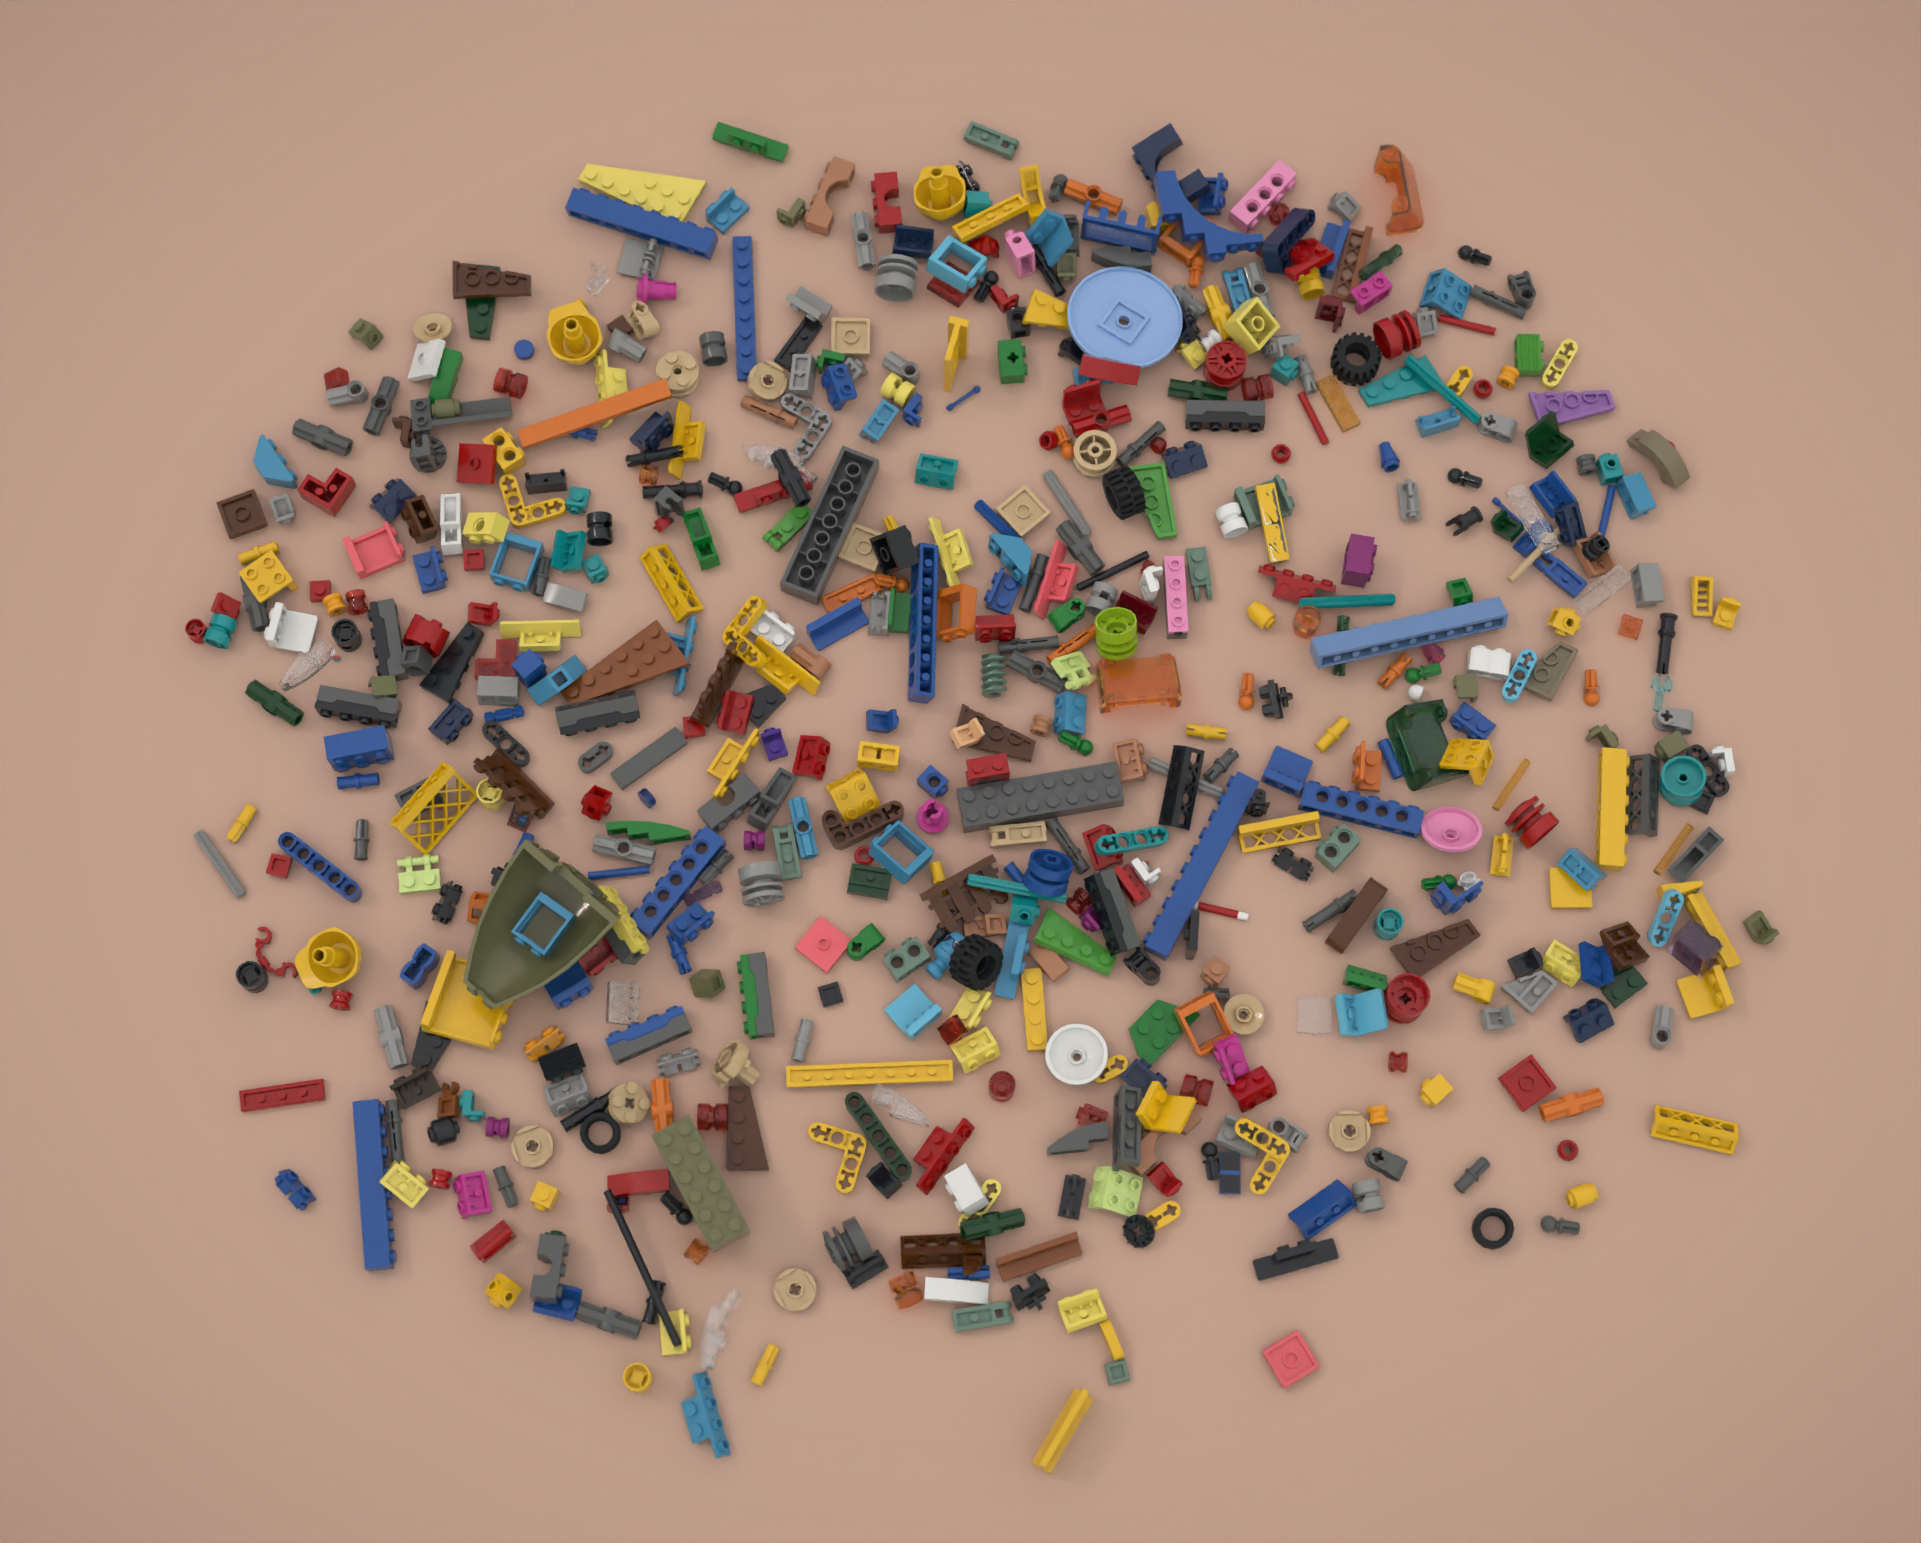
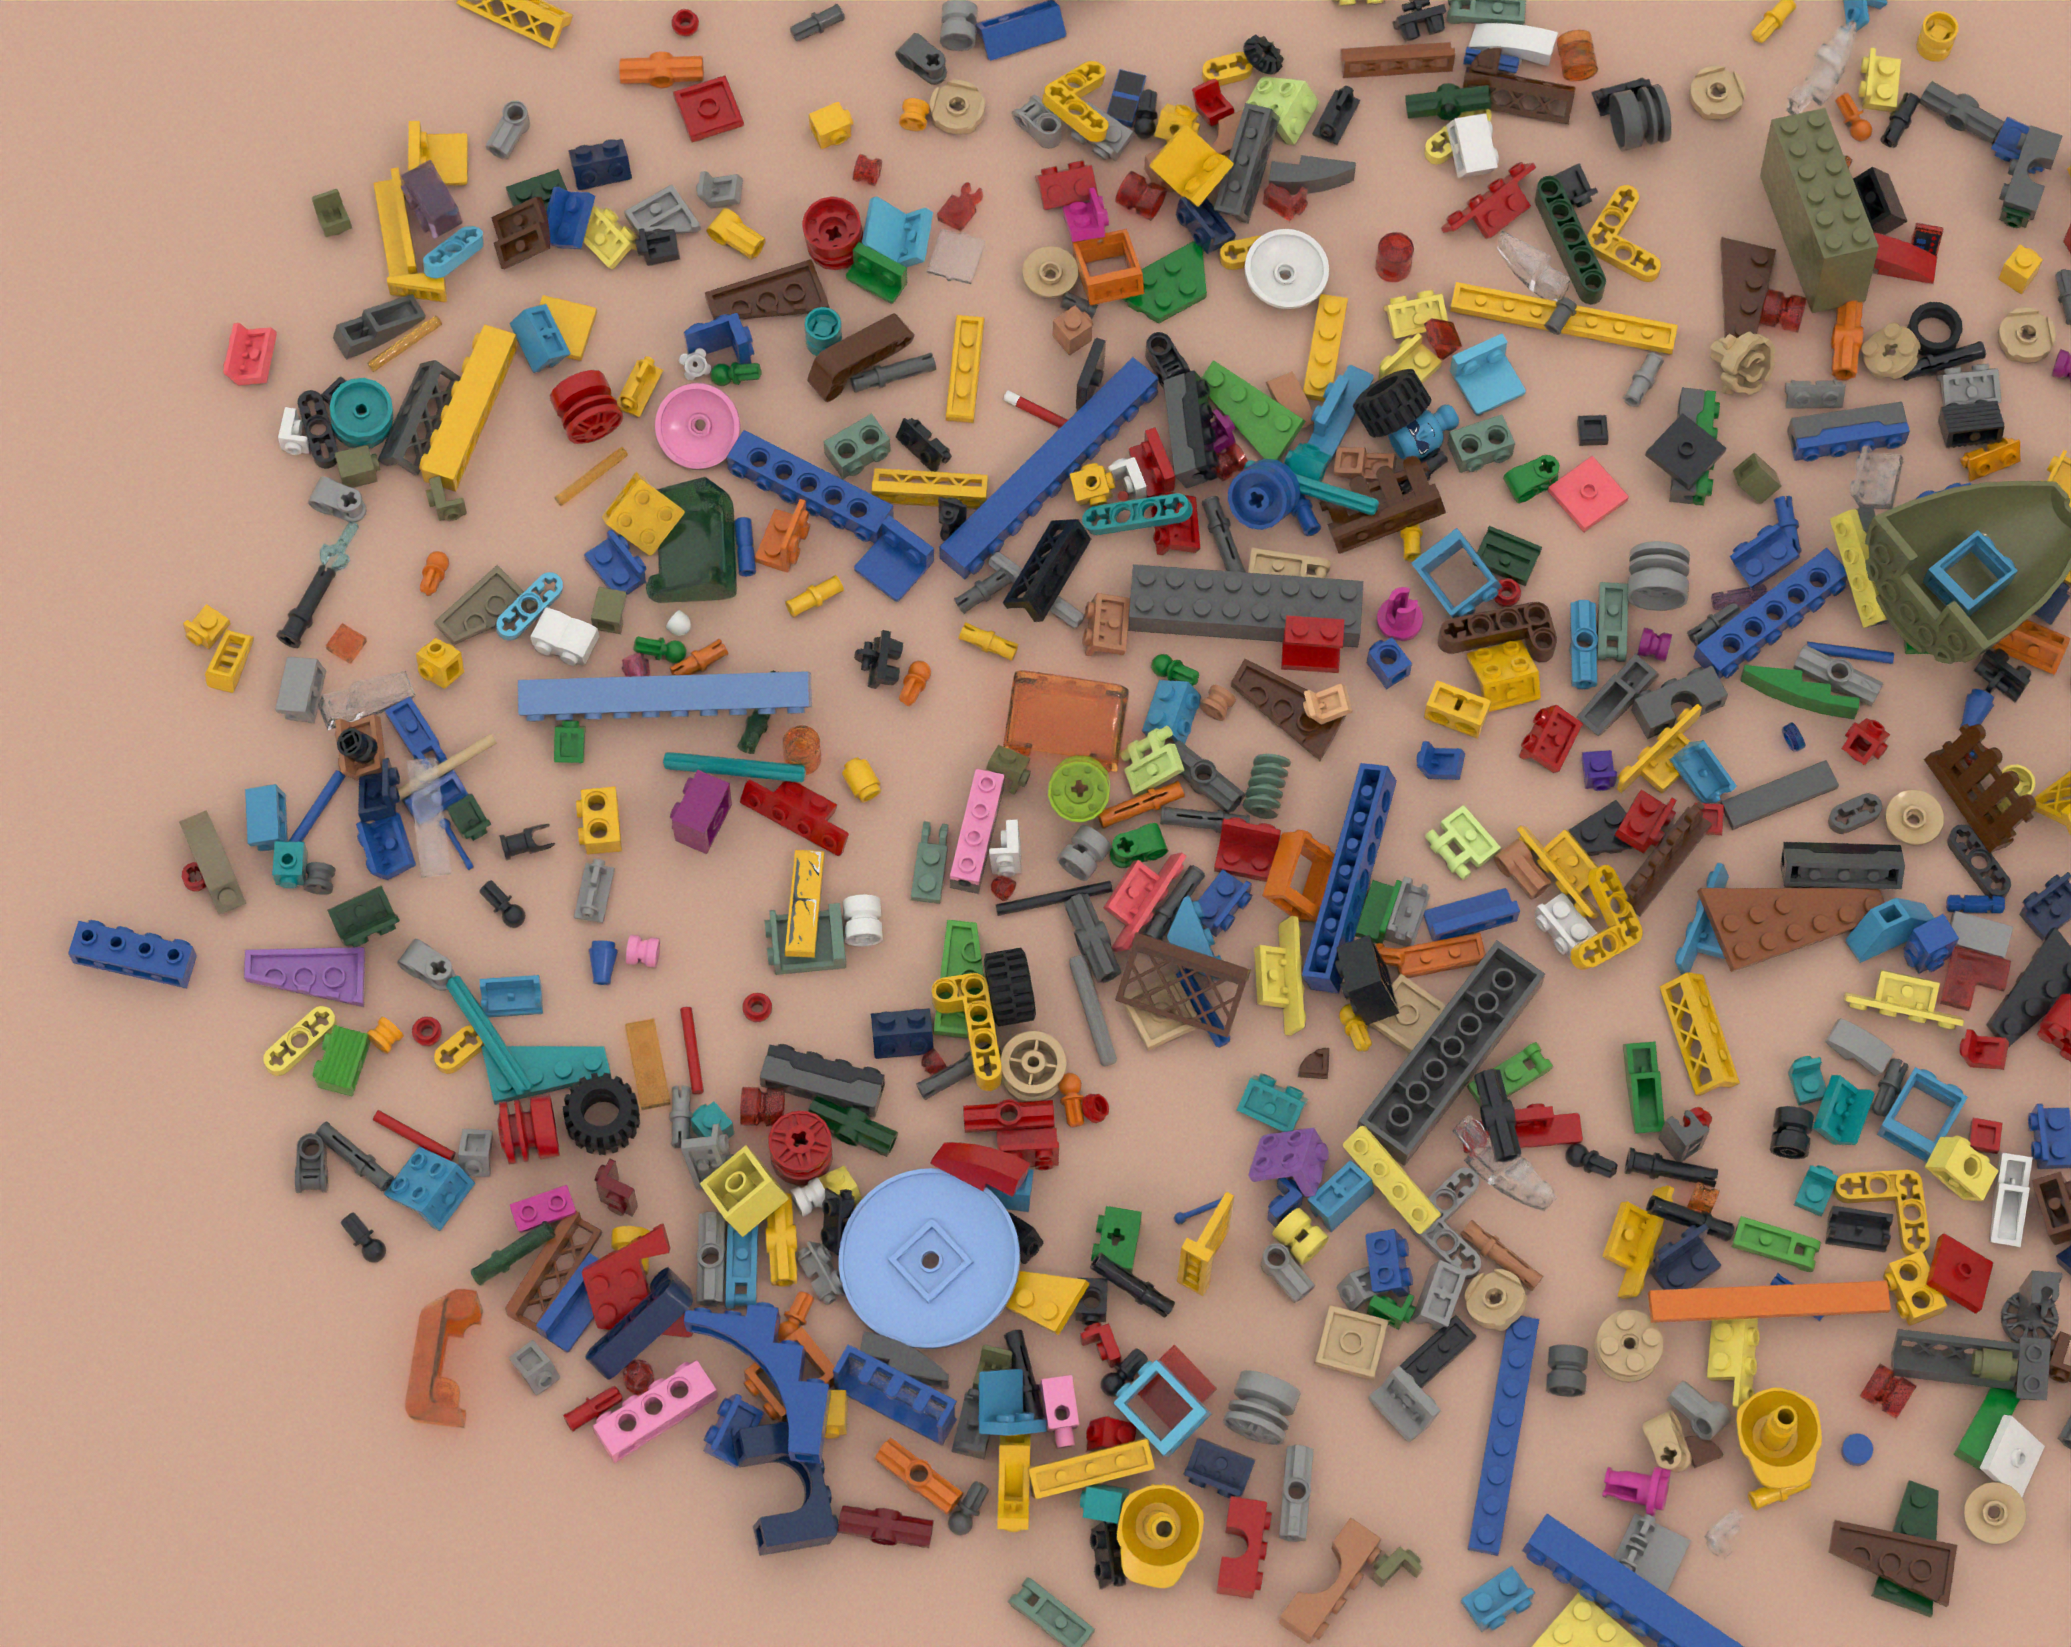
camera: 165 degrees left, 5 degrees down
(554, 751) = (1915, 805): none -> tan dish
(597, 460) = (1775, 1243): none -> bright green plate
(642, 1268) = (1910, 153): black piece -> none
(658, 1223) = (1880, 200): none -> black brick
(683, 1290) = (1860, 128): none -> orange axle
(703, 753) = (1702, 772): none -> dark azure hinge
(761, 979) = (1685, 451): none -> black plate
(848, 433) = (1391, 1180): none -> light yellow bracket
(850, 675) = (1469, 837): none -> yellowish green plate
(871, 1068) = (1560, 316): none -> dark grey pin
(915, 504) = (1315, 1065): none -> reddish brown tile
(916, 432) = (1291, 1154): none -> medium lavender bracket
(987, 332) = (1142, 1292): none -> black pin
(1012, 534) = (1190, 959): none -> reddish brown fence
(1104, 165) = (885, 1526): none -> dark red piece
(1138, 459) = (977, 1031): none -> yellow beam
(1143, 610) = (1043, 824): dark red bracket -> none
(1167, 642) = (1011, 765): none -> olive bracket
(1168, 856) = (1083, 481): none -> yellow brick
(1185, 1153) = (1173, 118): none -> yellow brick
(1282, 929) = (965, 368): none -> yellow tile
(1300, 191) = (593, 1408): none -> red axle
(1323, 1050) = (960, 210): none -> clear red plate
(1365, 468) = (644, 951): none -> bright pink wheel
(1416, 546) = (604, 819): none -> yellow brick
(1684, 388) = (132, 953): none -> blue brick
(1775, 809) = (249, 354): none -> coral bracket

